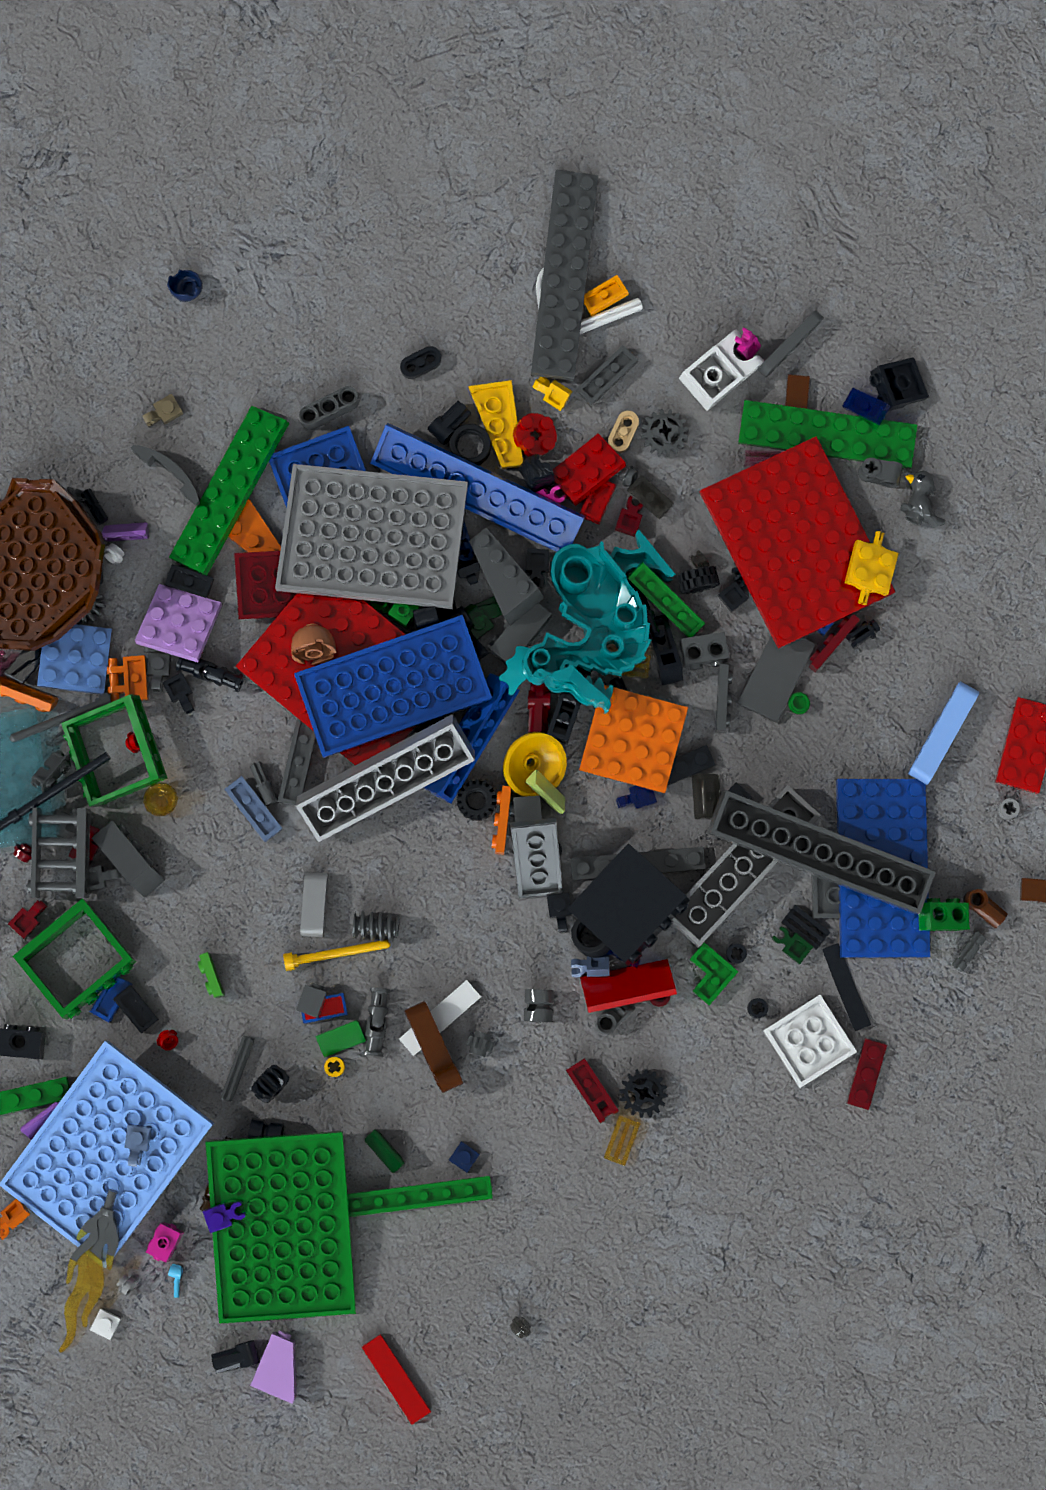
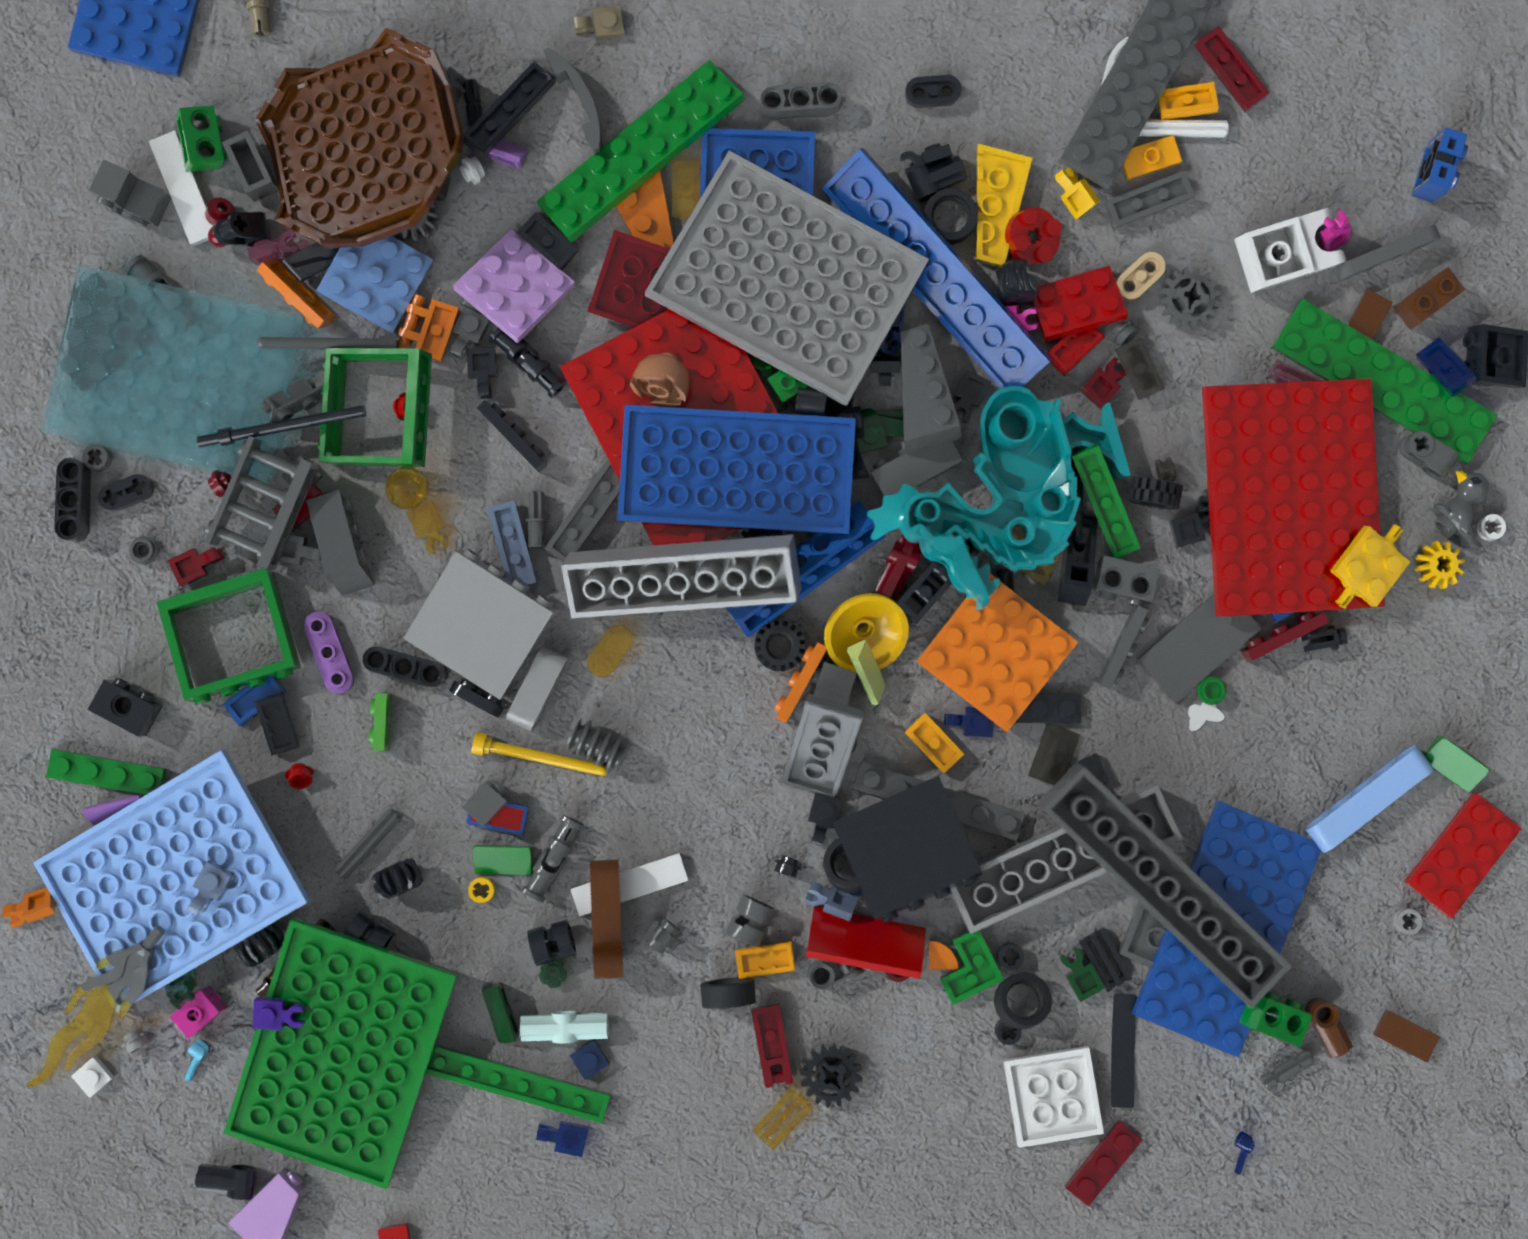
camera: 20 degrees right, 5 degrees up
(122, 499) = (508, 109): none -> black tile
(145, 1229) = (181, 989): none -> clear green plate
(160, 947) = (338, 662): none -> medium lavender plate
(185, 819) = (426, 523): none -> clear yellow plate
(189, 1173) = (259, 946): none -> black gear
(201, 928) = (391, 666): none -> black beam
(221, 729) = (513, 434): none -> black plate
(254, 873) = (480, 622): none -> light grey panel
(264, 927) = (467, 692): none -> black plate
(272, 503) = (685, 188): none -> clear yellow plate
(355, 855) = (609, 651): none -> clear yellow tile
(395, 1088) = (541, 944): none -> black wheel
(411, 1099) = (560, 974): none -> clear green plate
(435, 1140) = (564, 1026): none -> light aqua piece
(439, 408) = (933, 155): none -> black plate
(472, 1220) = (568, 1139): none -> clear blue plate
(543, 1064) = (728, 993): none -> black tyre
(549, 956) = (787, 866): none -> black plate
(561, 1030) = (765, 959): none -> light orange plate
(596, 345) = (1151, 158): none -> light orange plate
(616, 823) = (934, 743): none -> light orange plate
(626, 260) = (1231, 69): none -> dark red plate
(686, 974) = (941, 956): none -> orange tile
(759, 964) = (1040, 988): none -> black tyre
(799, 723) = (1199, 714): none -> white sticker
(800, 267) = (1439, 165): none -> blue piece
(833, 363) = (1429, 298): none -> reddish brown brick
(930, 547) = (1429, 565): none -> yellow gear
(943, 500) = (1501, 526): none -> white bush
(962, 1016) = (1246, 1145): none -> clear blue hand
(994, 682) = (1455, 764): none -> slope

